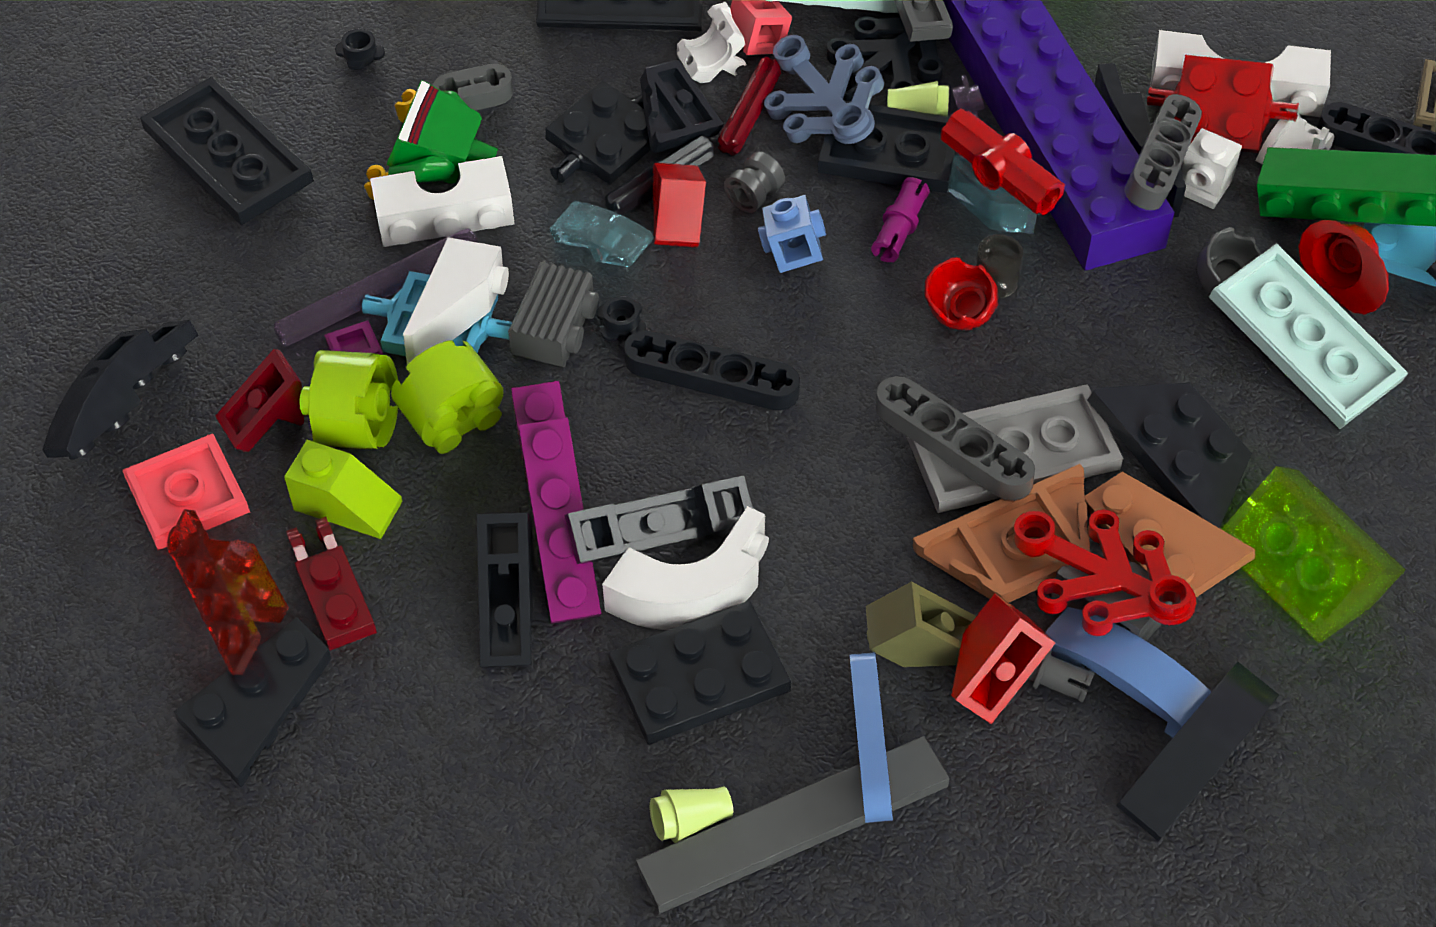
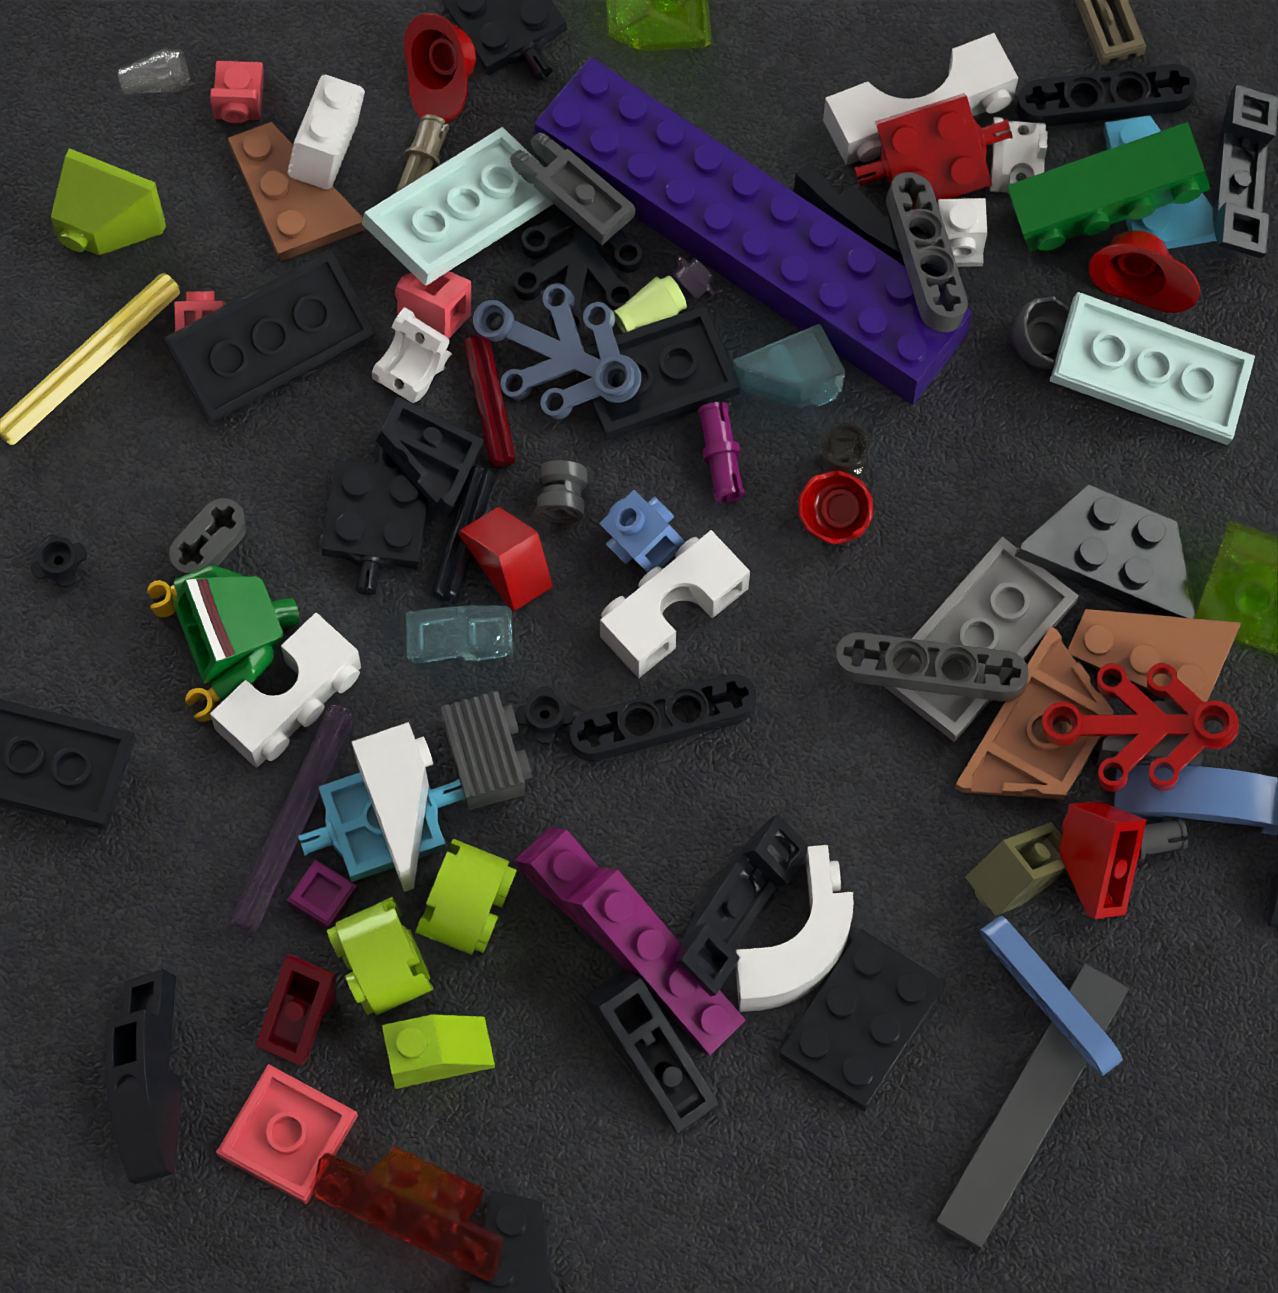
camera: 35 degrees left, 15 degrees up
(331, 589) = (493, 1142): dark red hinge -> none
(688, 811) = (946, 1153): yellowish green cone -> none
(814, 285) = (701, 573): none -> white arch
(1002, 162) = (791, 349): red piece -> none

